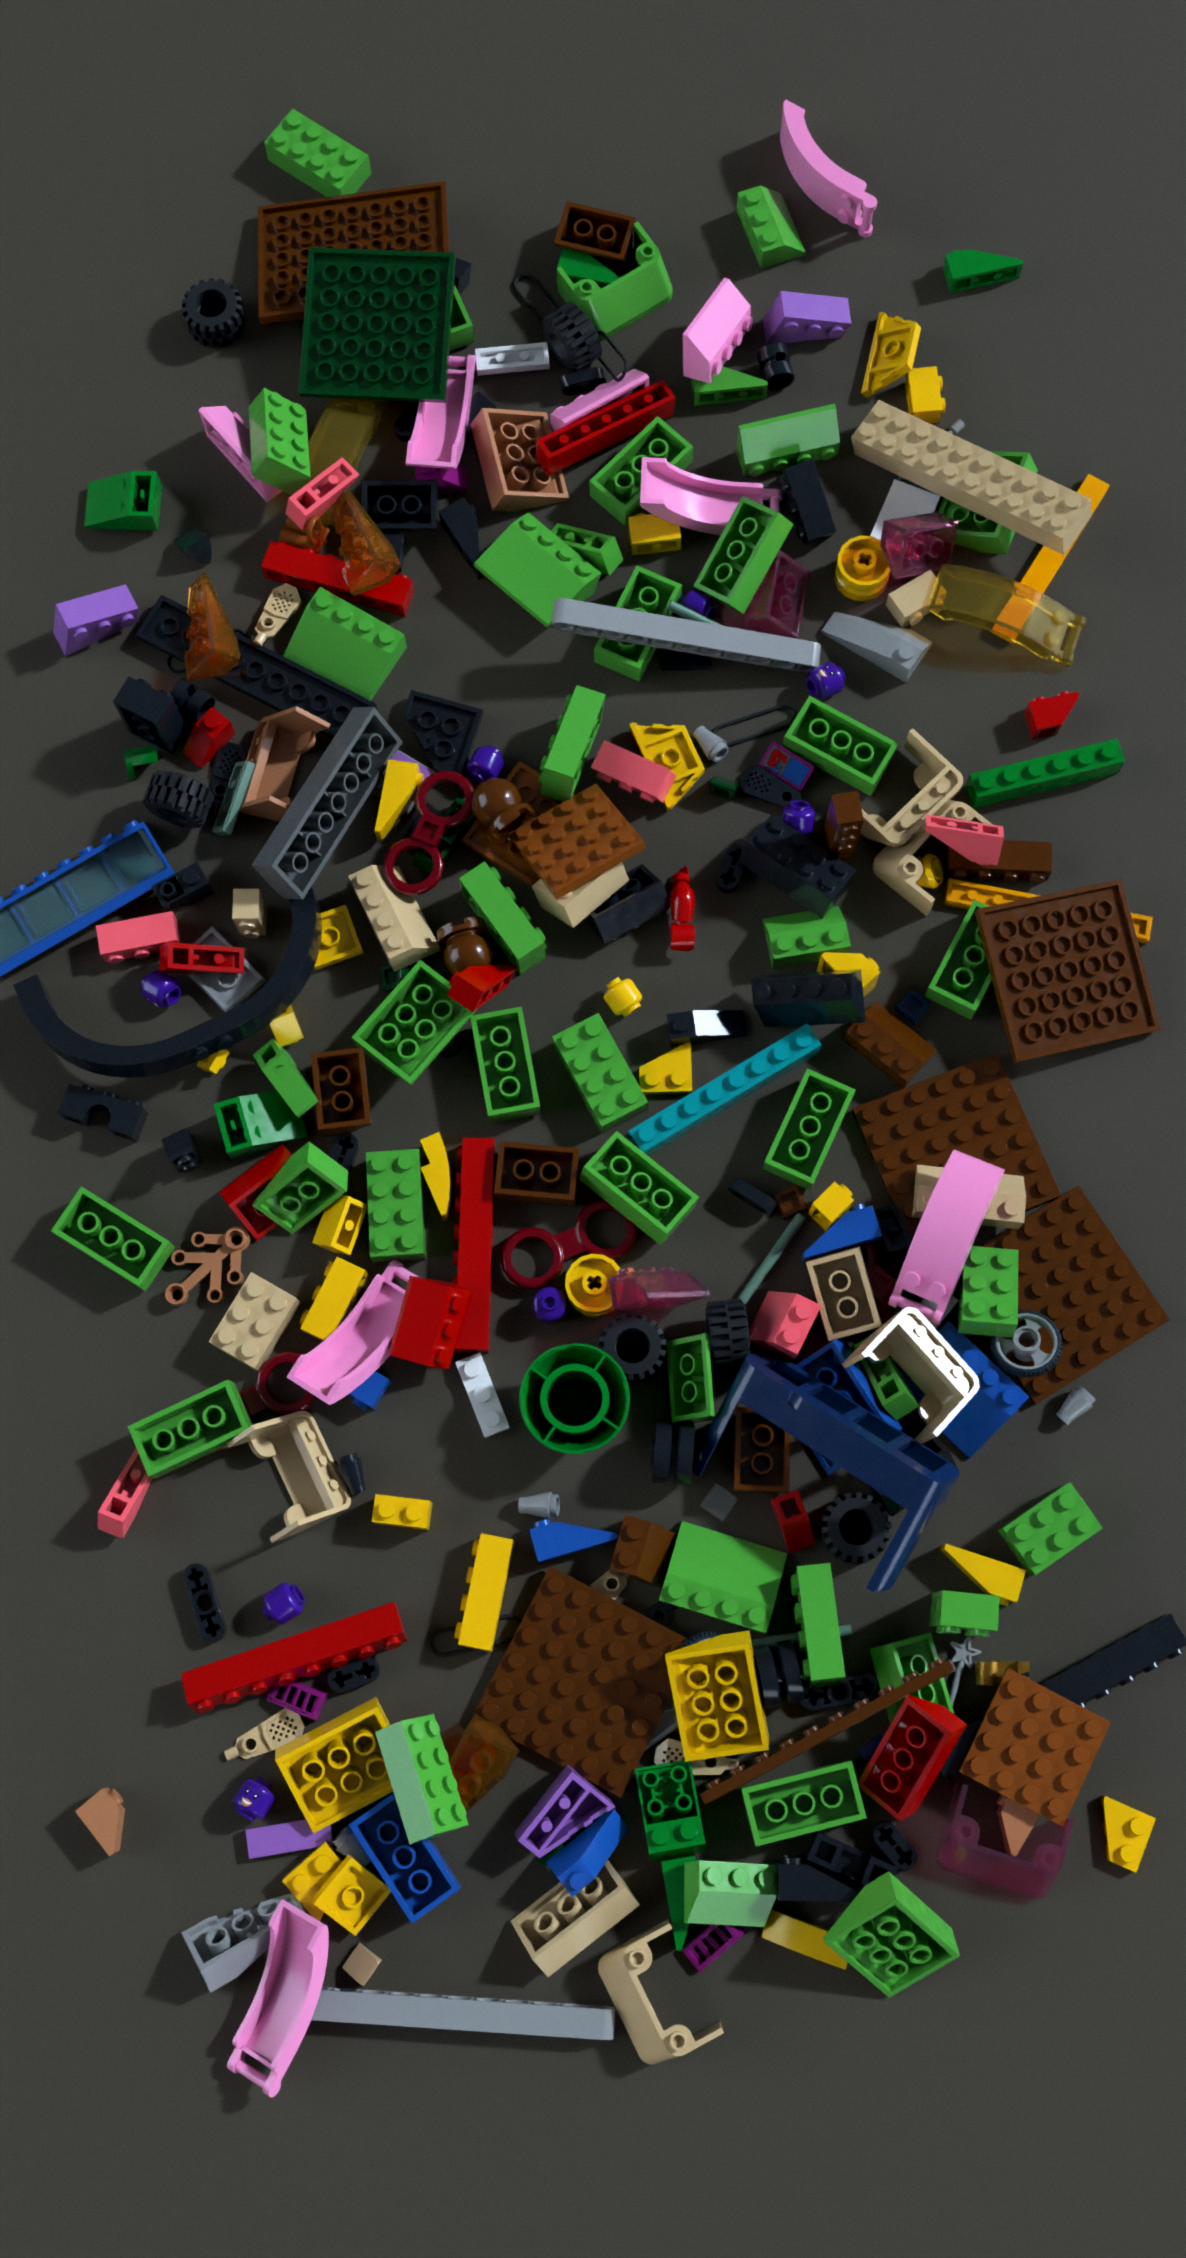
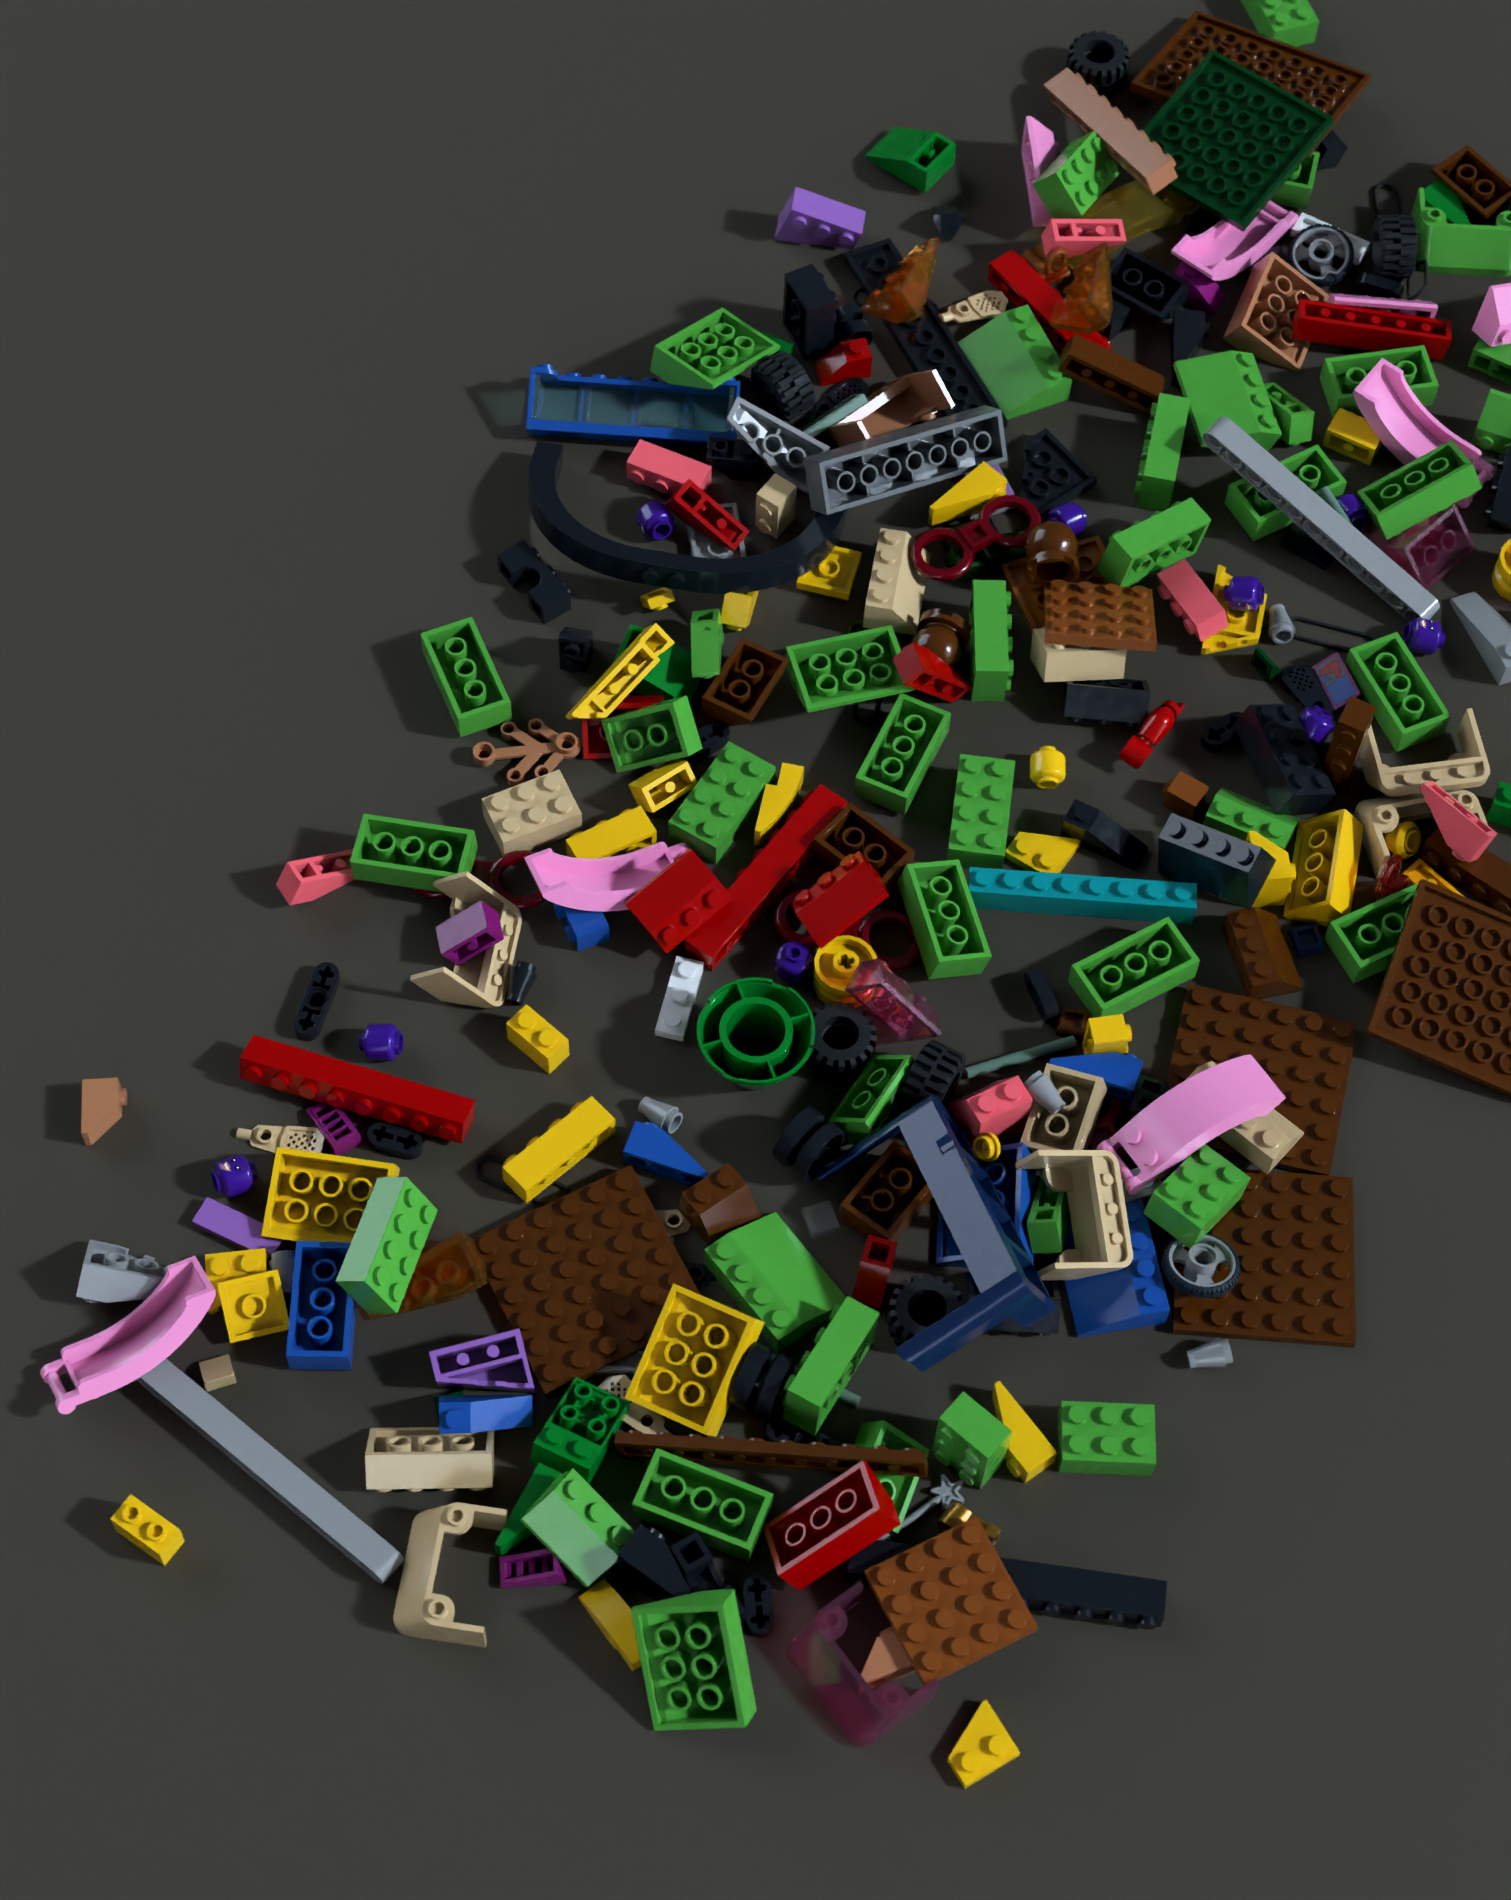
camera: 30 degrees right, 15 degrees down
(99, 807) = (710, 351): none -> bright green slope
(213, 857) = (775, 441): none -> light grey wedge
(243, 1157) = (623, 675): none -> yellow wedge
(284, 377) = (1121, 138): none -> nougat brick
(284, 1463) = (469, 933): none -> magenta brick
(408, 2133) = (147, 1530): none -> yellow brick
(431, 607) = (1111, 373): none -> reddish brown brick
(497, 388) = (1335, 239): none -> light grey wheel
(520, 652) = (1161, 452): none -> bright green brick
(555, 1234) = (840, 898): none -> red slope
(670, 739) = (1244, 593): none -> dark purple head
(741, 947) = (1184, 795): none -> dark orange brick
(808, 1363) = (987, 1147): none -> yellow plate
(821, 1290) = (1044, 1092): none -> light grey cone
(888, 936) = (1325, 867): none -> yellow slope
(947, 916) = (1391, 879): none -> clear red piece

